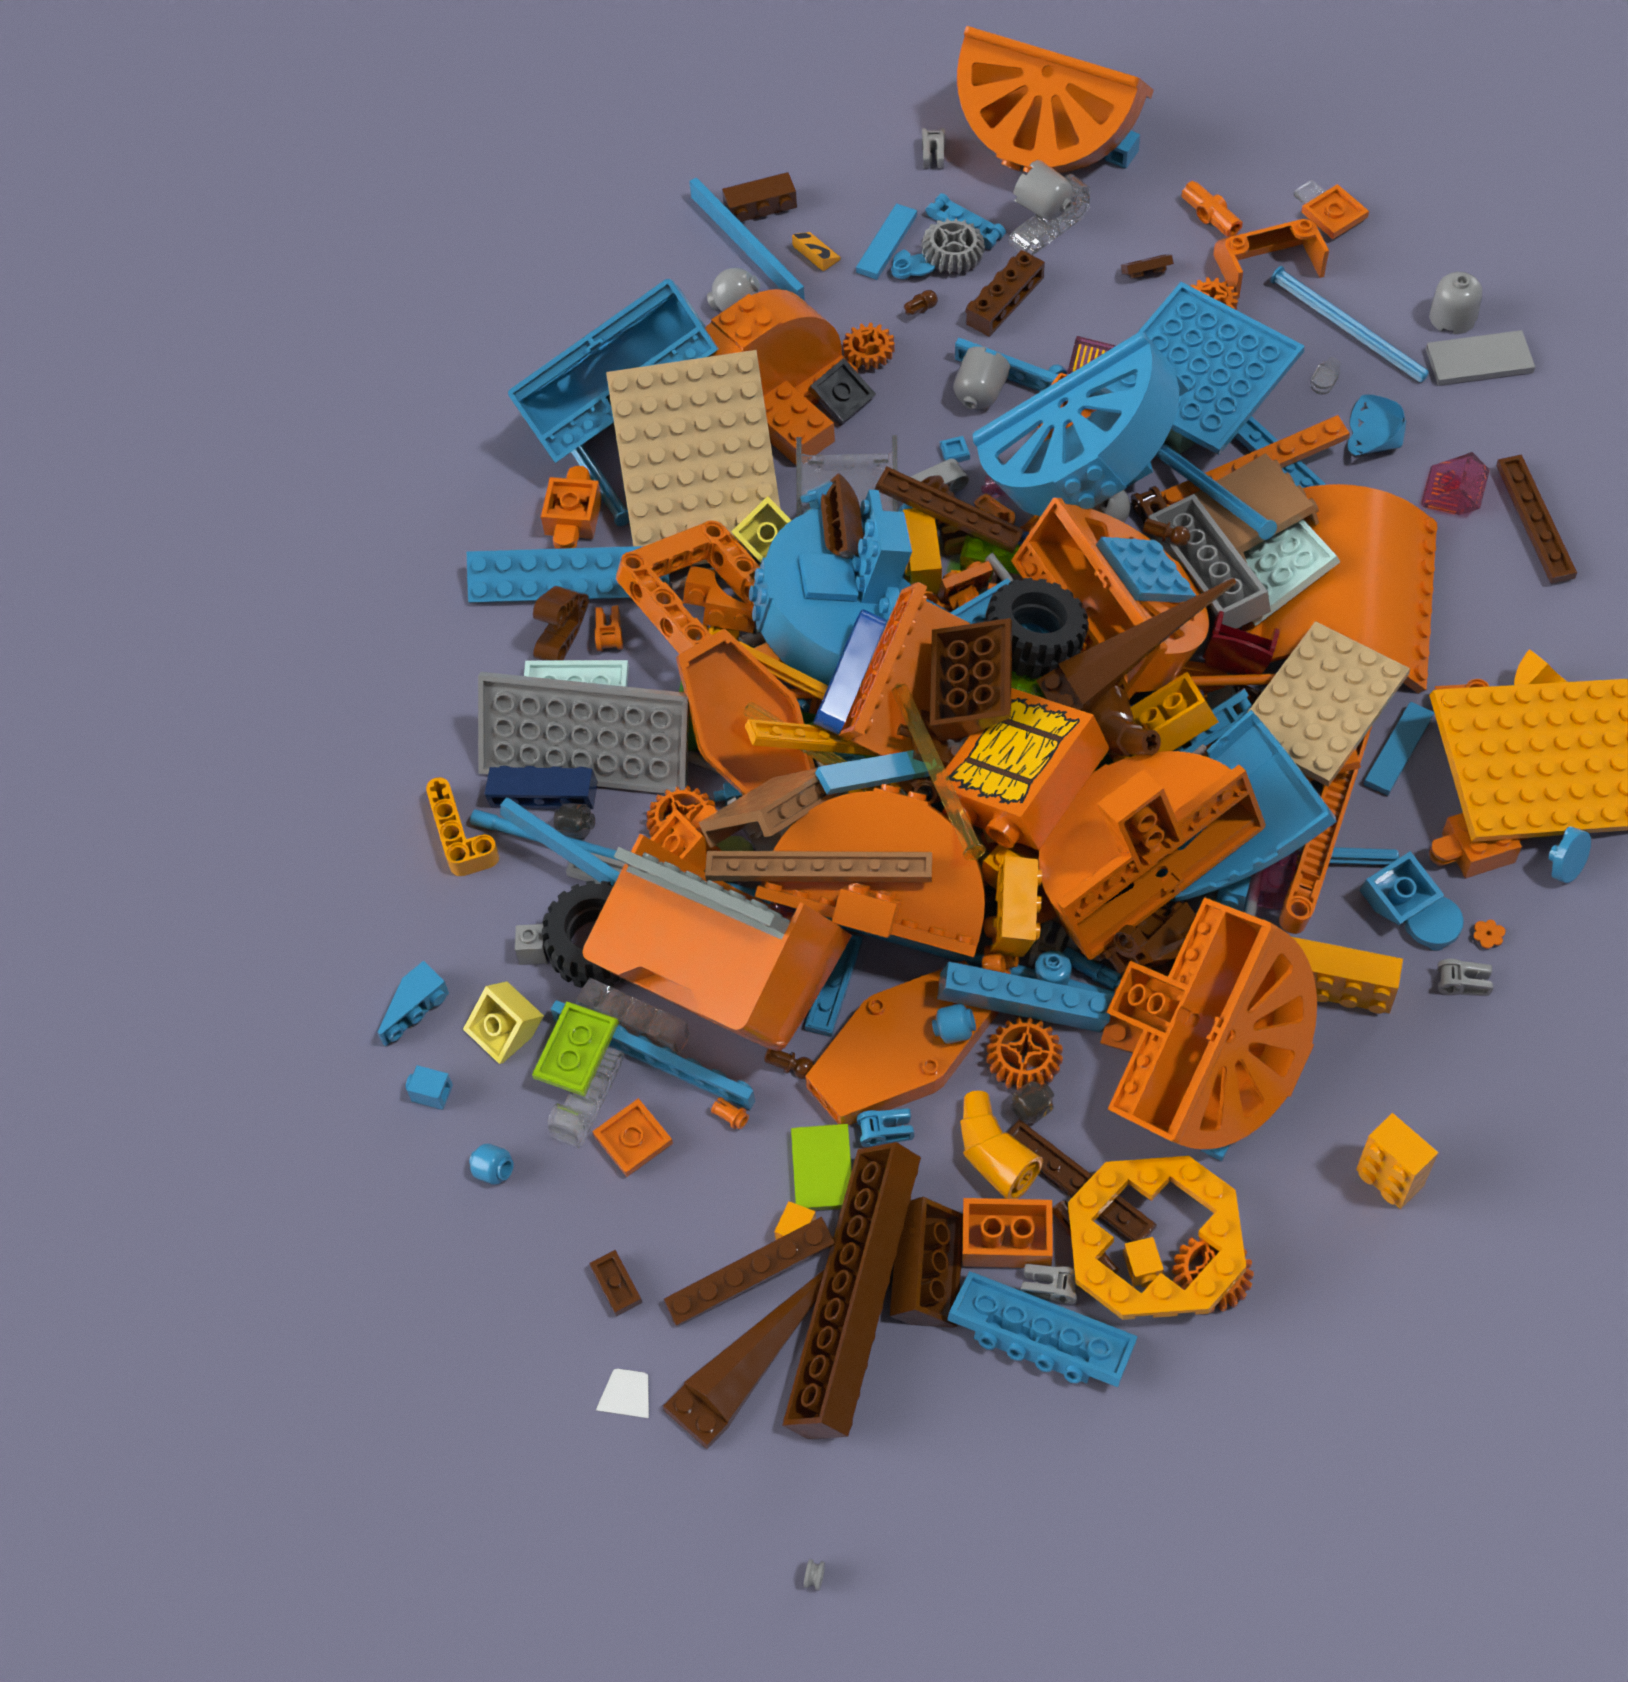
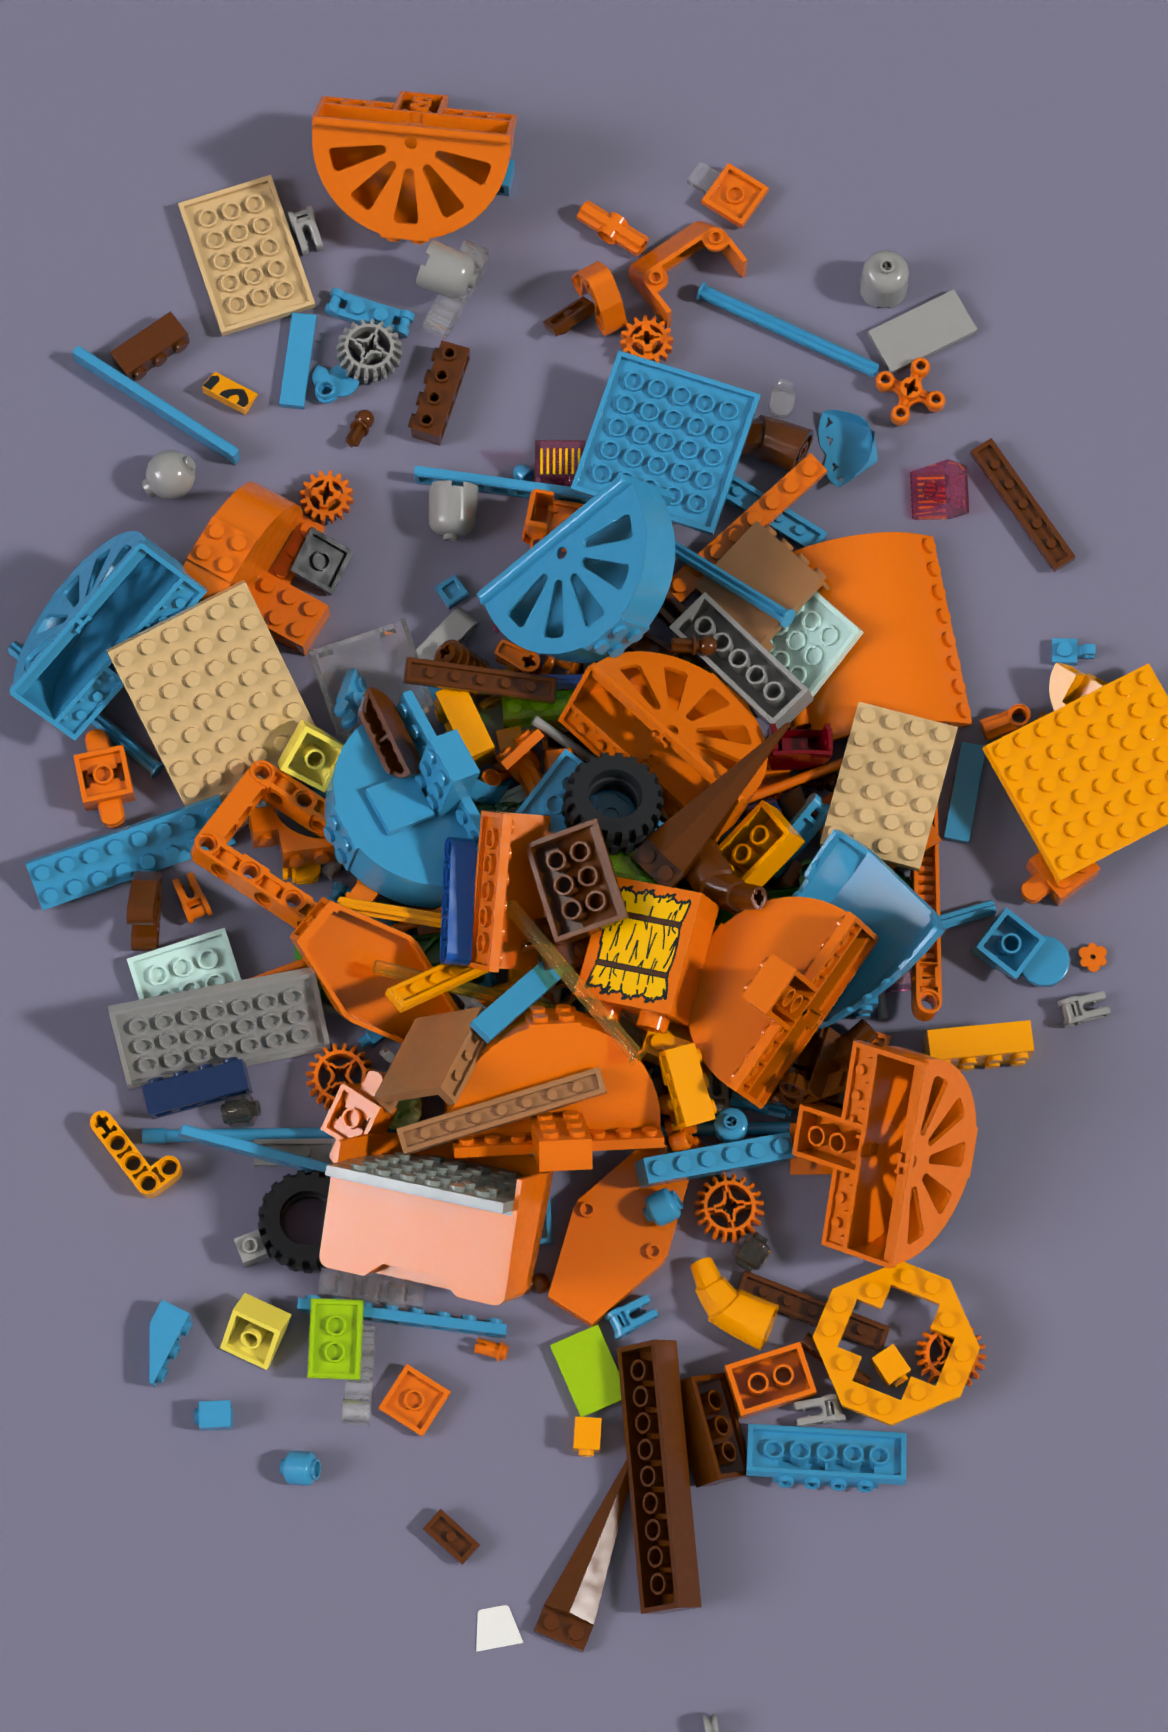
camera: 25 degrees left, 15 degrees up
(749, 1271) = (564, 1490): reddish brown plate -> none
(873, 154) = (246, 255): none -> tan plate
(1145, 569) = (693, 706): dark azure plate -> none
(1180, 239) = (600, 284): none -> orange connector
(1305, 401) = (778, 441): none -> reddish brown piece
(1396, 1161) = (1075, 1210): light orange brick -> none
(1452, 399) = (918, 394): none -> orange gear
(1550, 654) = (1068, 652): none -> dark azure plate
(1570, 855) = (1144, 860): dark azure tile -> none

